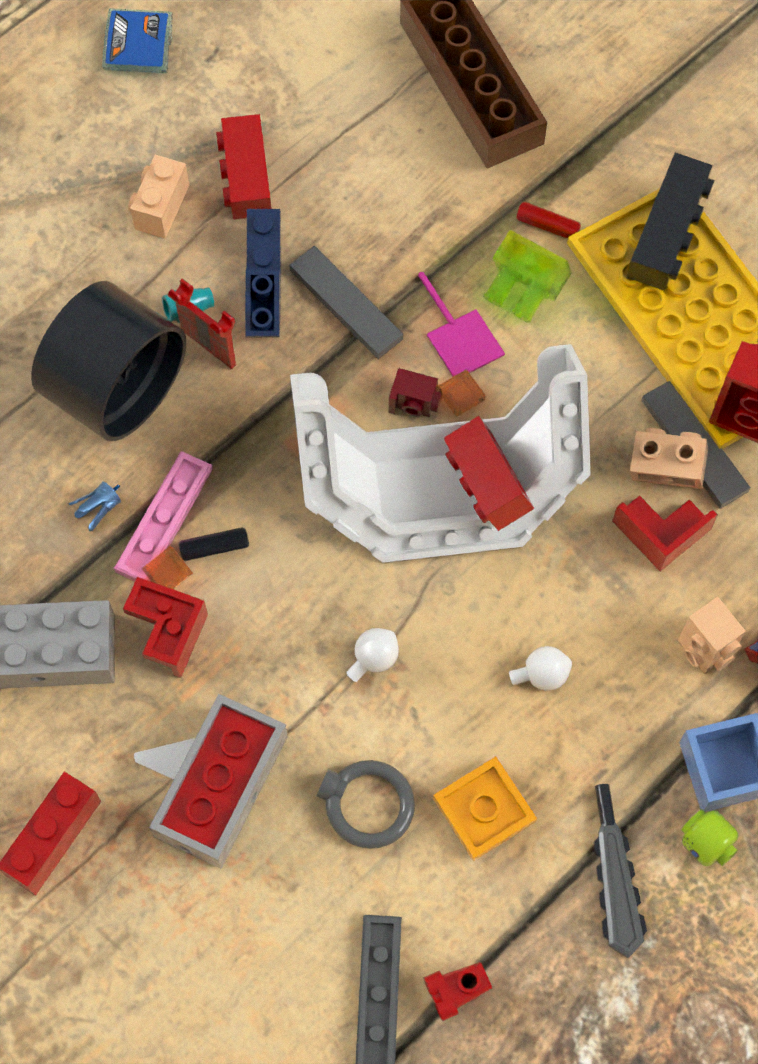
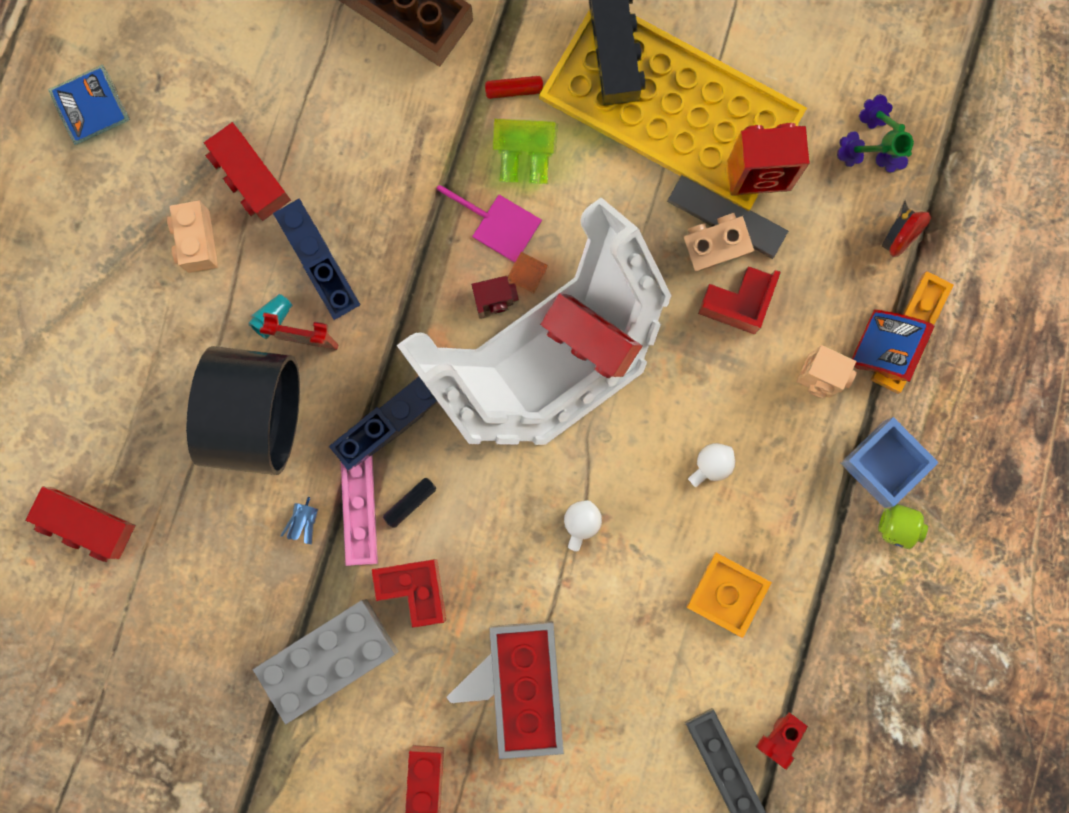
camera: 25 degrees left, 15 degrees up
(167, 569) = (387, 545): clear orange tile -> none
(234, 455) = (383, 424): none -> dark blue slope
(333, 790) = (610, 639): dark grey piece -> none
(346, 302) = (394, 244): dark grey tile -> none
(619, 898) = (859, 605): dark grey sword -> none

